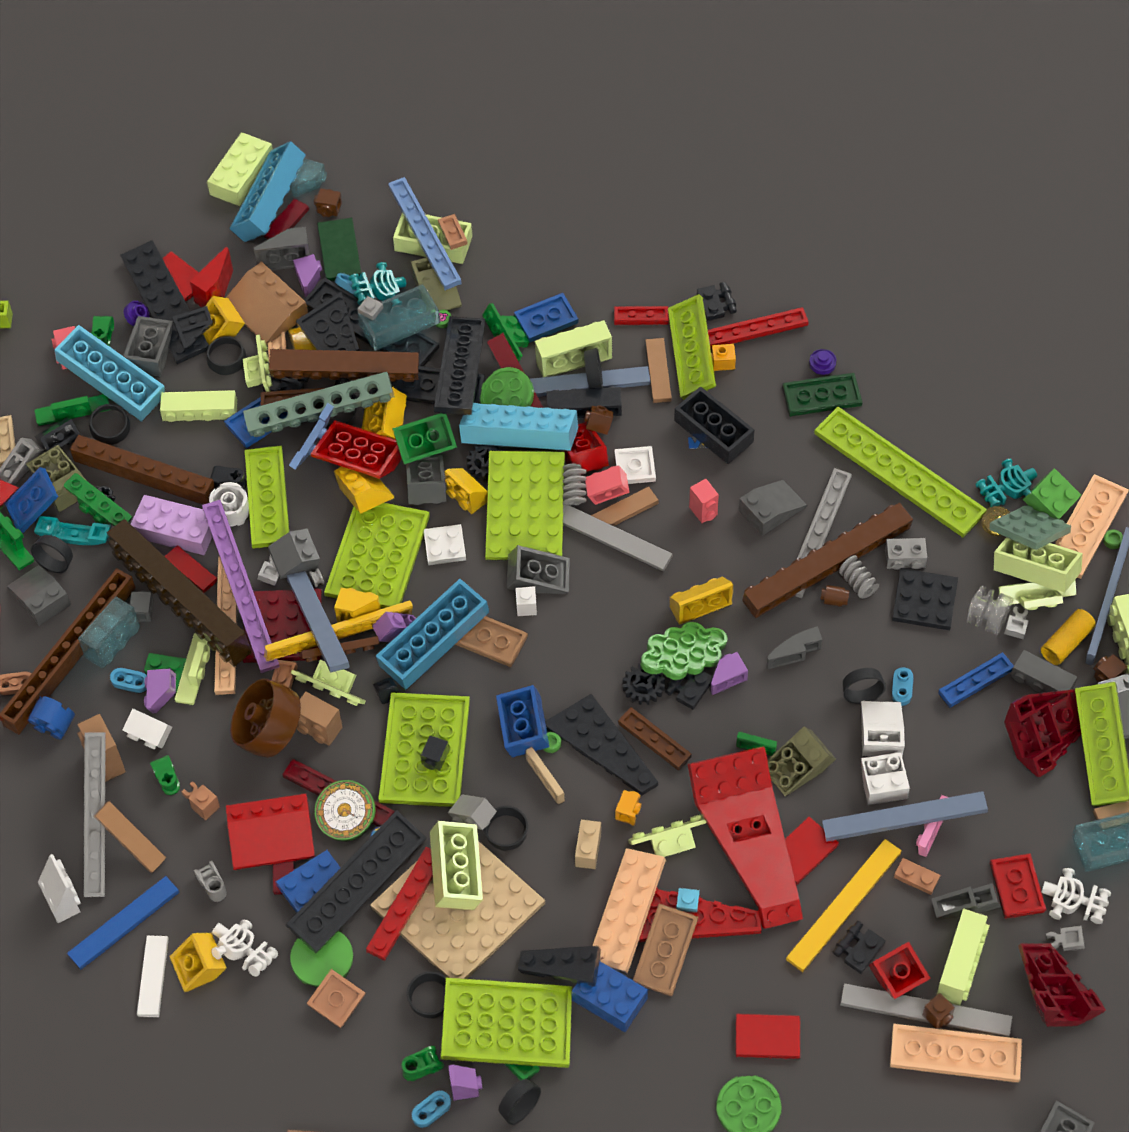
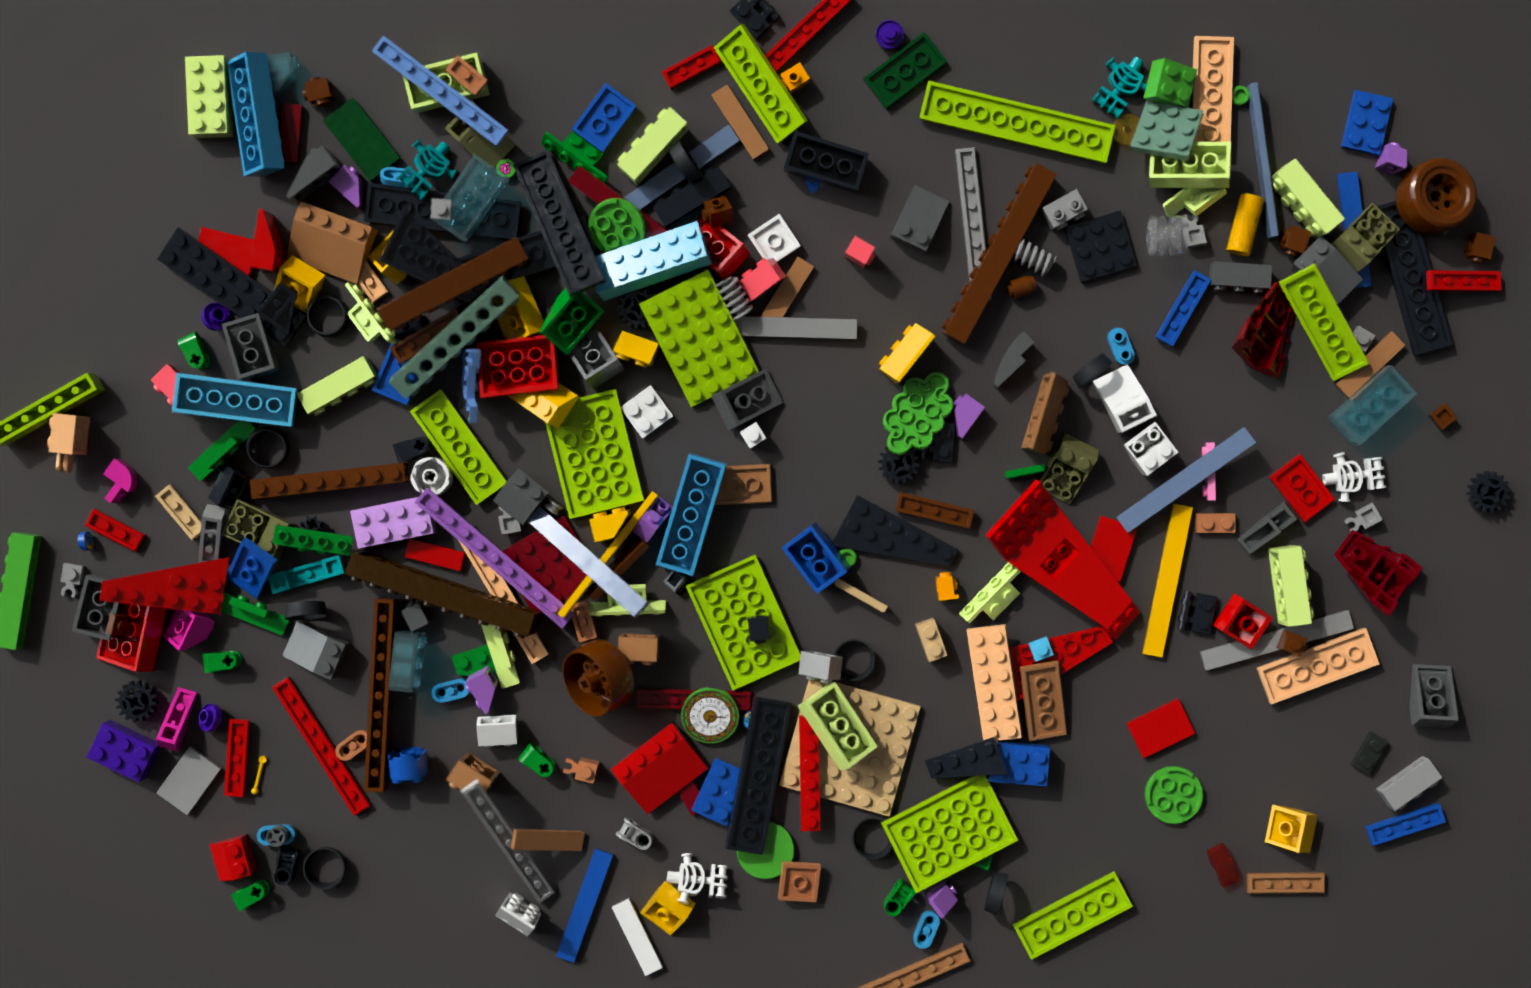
camera: 30 degrees left, 30 degrees up
(800, 698) = (1045, 413): none -> medium nougat slope

